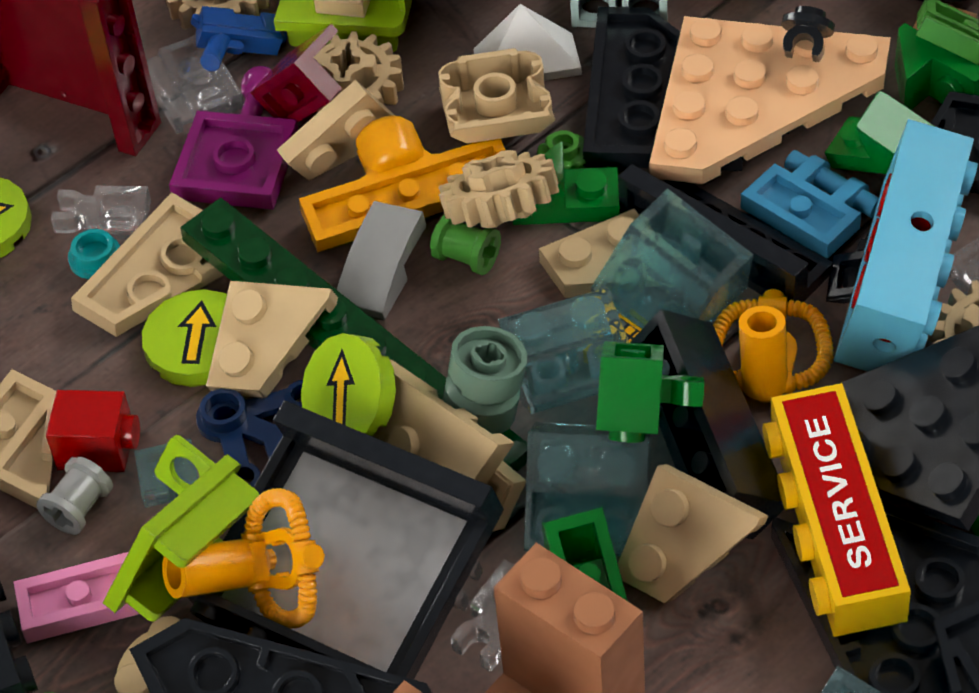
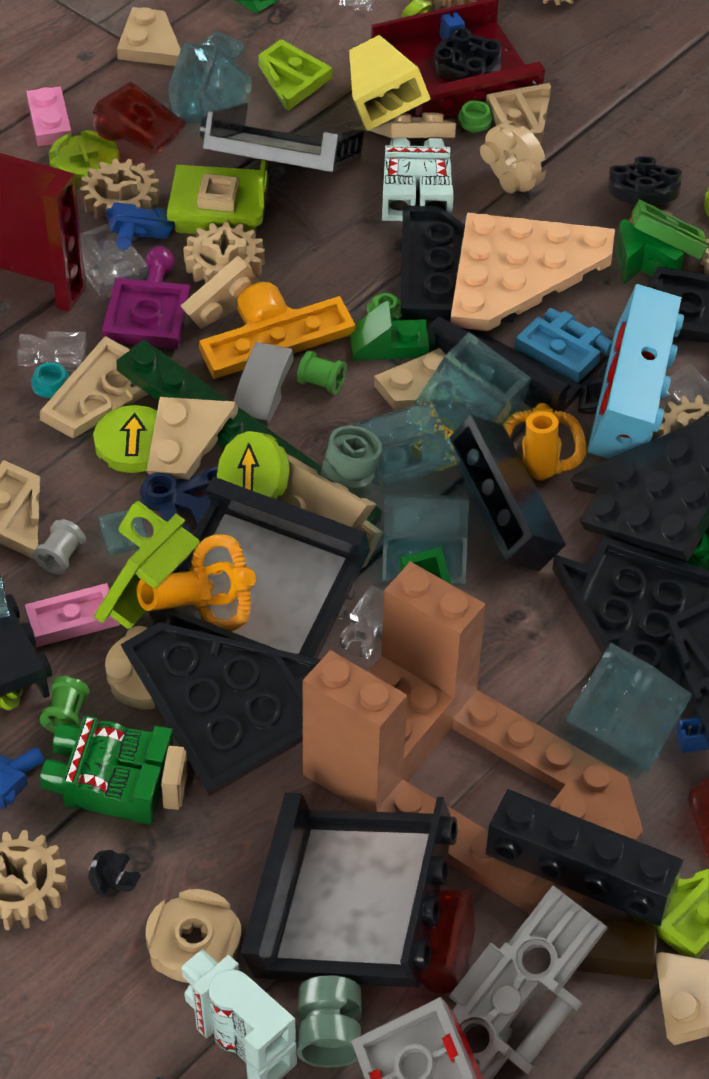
camera: 10 degrees left, 0 degrees up
(92, 427) = (67, 498): red brick -> none
(298, 81) = (193, 256): dark red panel -> none
(495, 95) = (335, 268): tan slope -> none
(498, 189) = (346, 333): tan gear -> none
(534, 33) = (351, 237): white slope -> none
(634, 388) = (458, 467): green brick -> none
(682, 533) = (496, 562): tan wing -> none
(806, 24) = (557, 219): black plate -> none
(838, 511) = (599, 547): brick -> none
(872, 139) = (605, 301): green slope -> none

